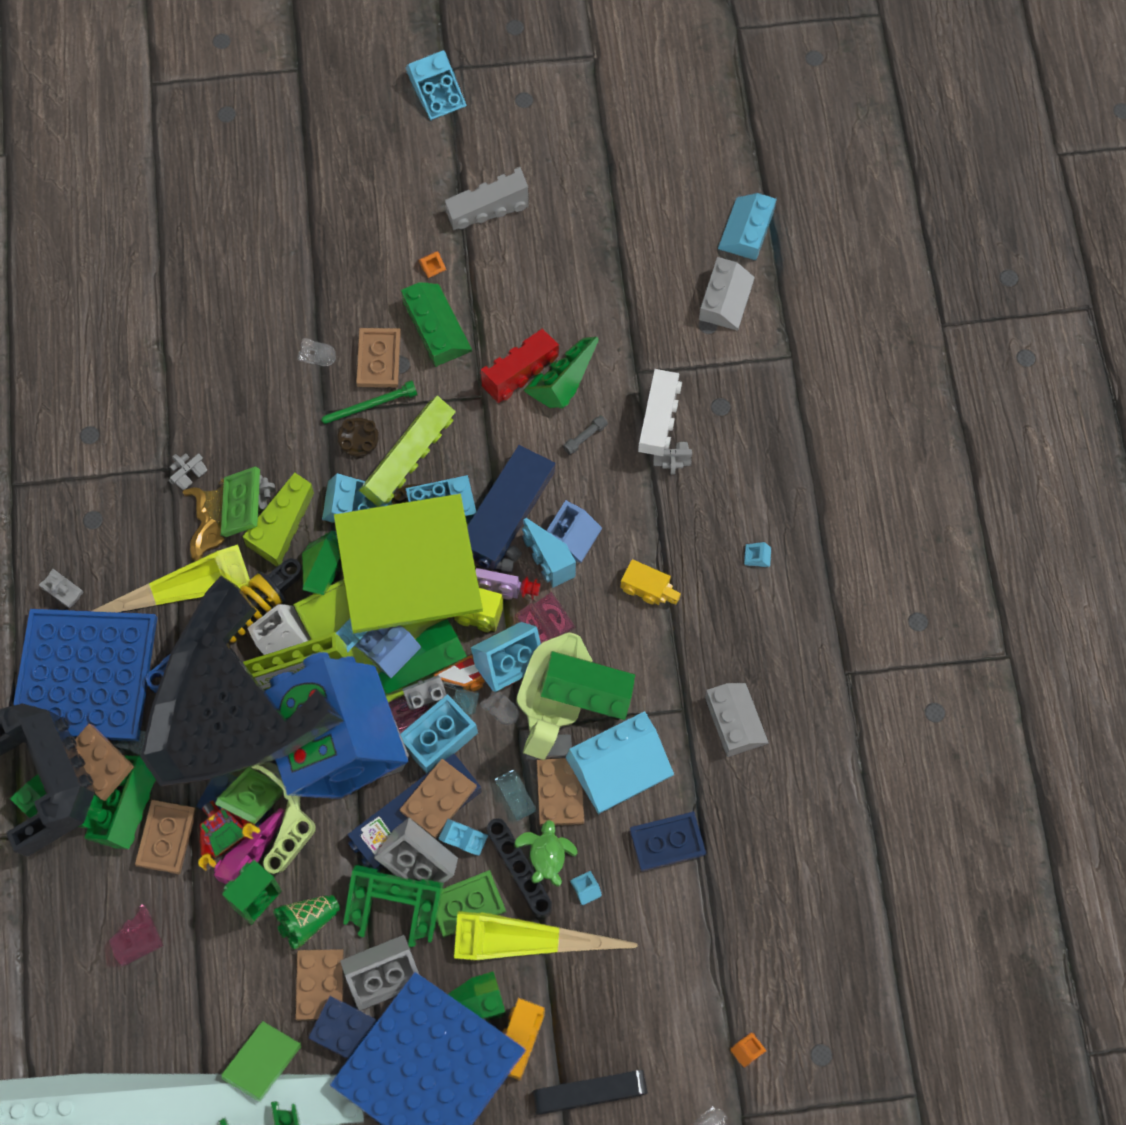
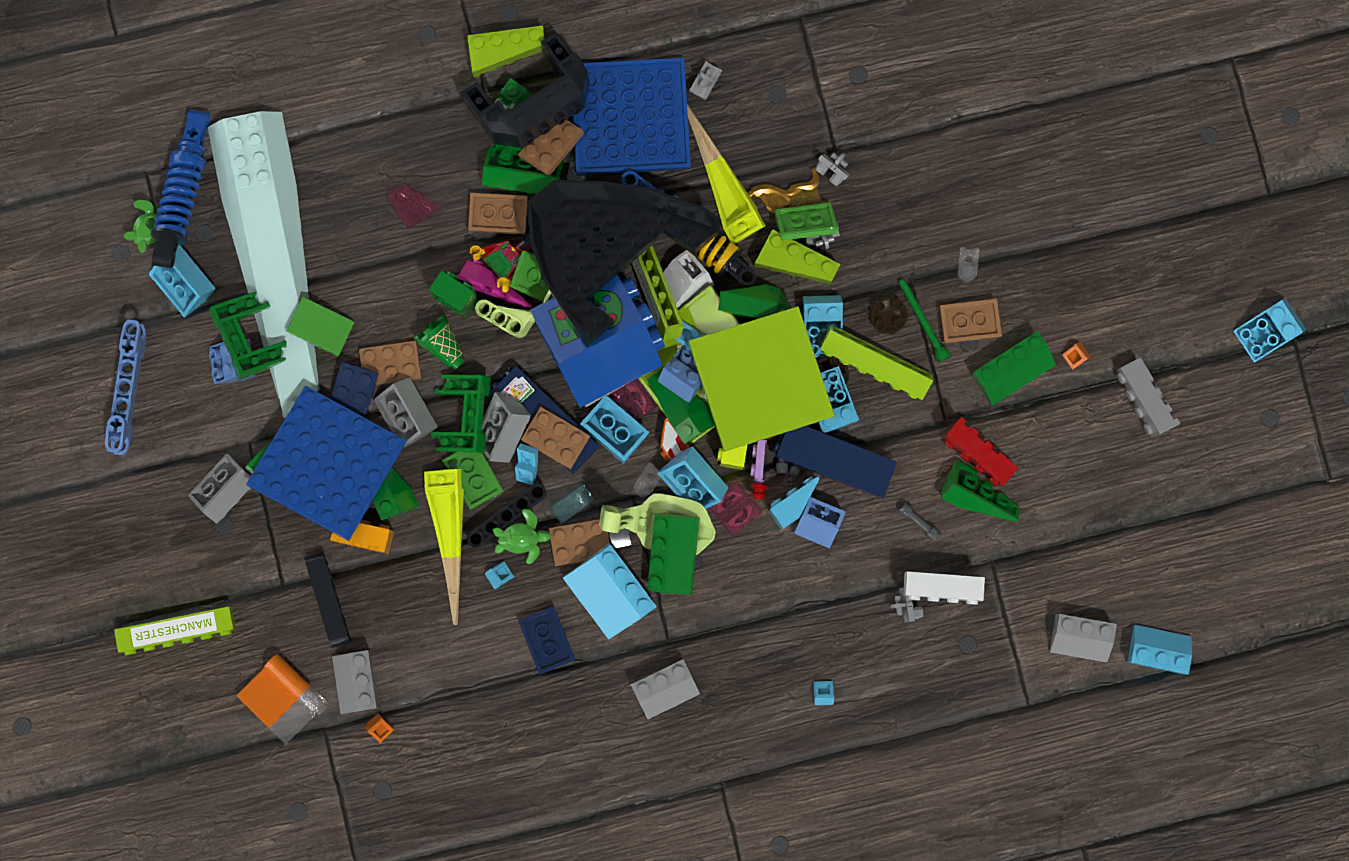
camera: 80 degrees right, 15 degrees up
(424, 692) = (649, 412): light grey hips -> none
(466, 700) = (649, 449): clear light blue plate -> none
(648, 584) = (780, 596): yellow hinge -> none
(692, 1070) = (355, 682): none -> light grey slope

